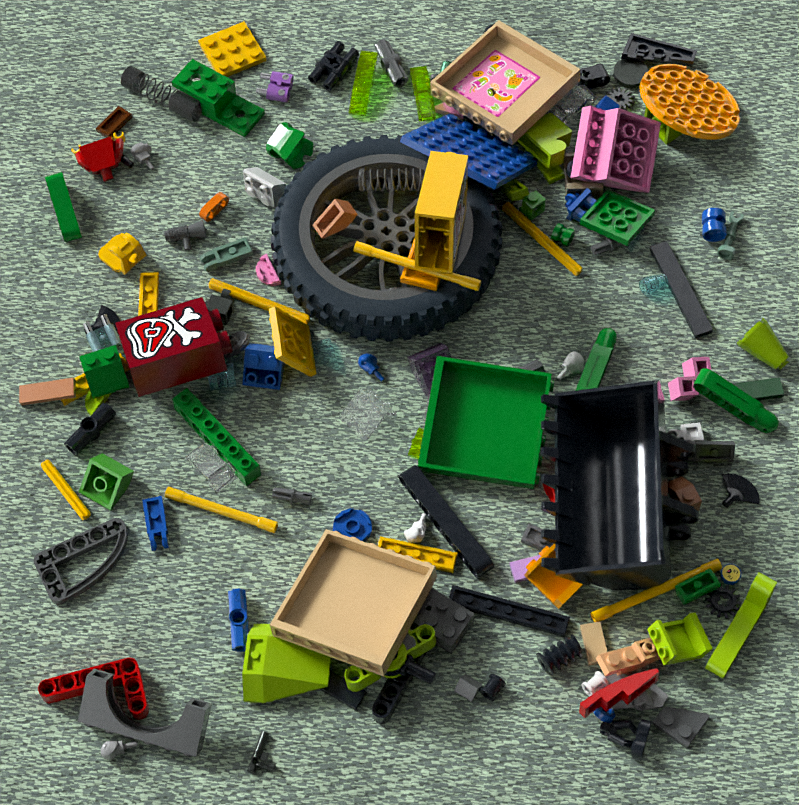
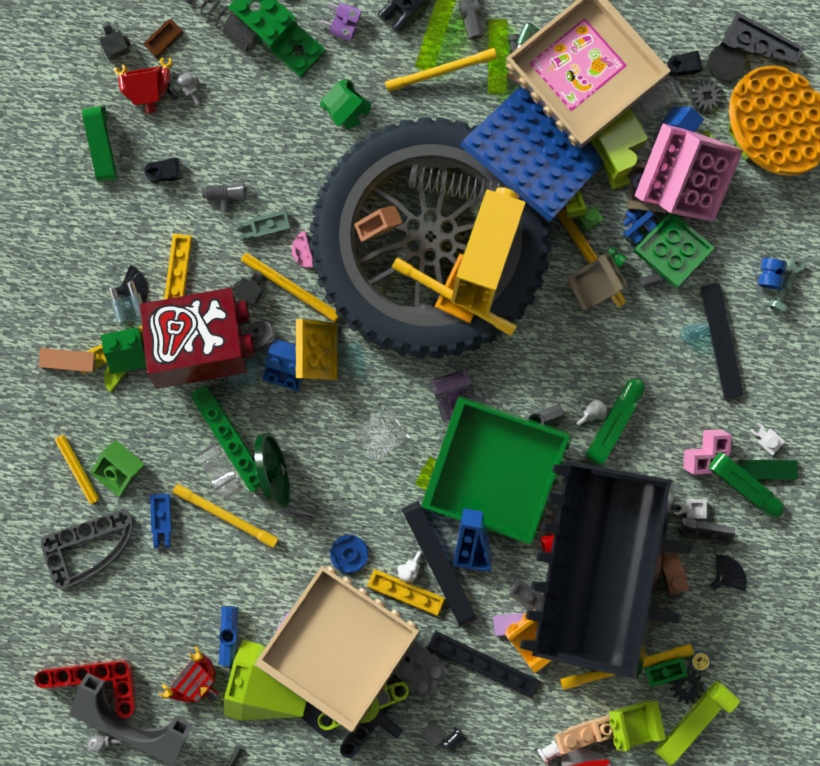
camera: 10 degrees right, 25 degrees up
(69, 130) = (114, 43): none -> pearl dark grey brick
(82, 436) = (96, 417): black piece -> none
(122, 253) = (155, 207): yellow piece -> none
(126, 221) = (166, 170): none -> black piece
(208, 668) = (193, 681): none -> torso
(214, 206) = (257, 165): orange beam -> none
(261, 449) = (269, 473): none -> dark green dish
(263, 186) = (311, 148): white slope -> none
(369, 364) = (390, 379): blue piece -> none
(405, 93) = (479, 58): none -> yellow piece
(474, 488) = (472, 543): none -> blue wedge
(551, 252) = (596, 281): none -> dark tan panel
(559, 654) = (523, 720): black piece -> none
(593, 641) = (557, 709): tan tile -> none
(747, 366) = (768, 440): none -> white plate
(764, 345) = (789, 423): lime cone -> none

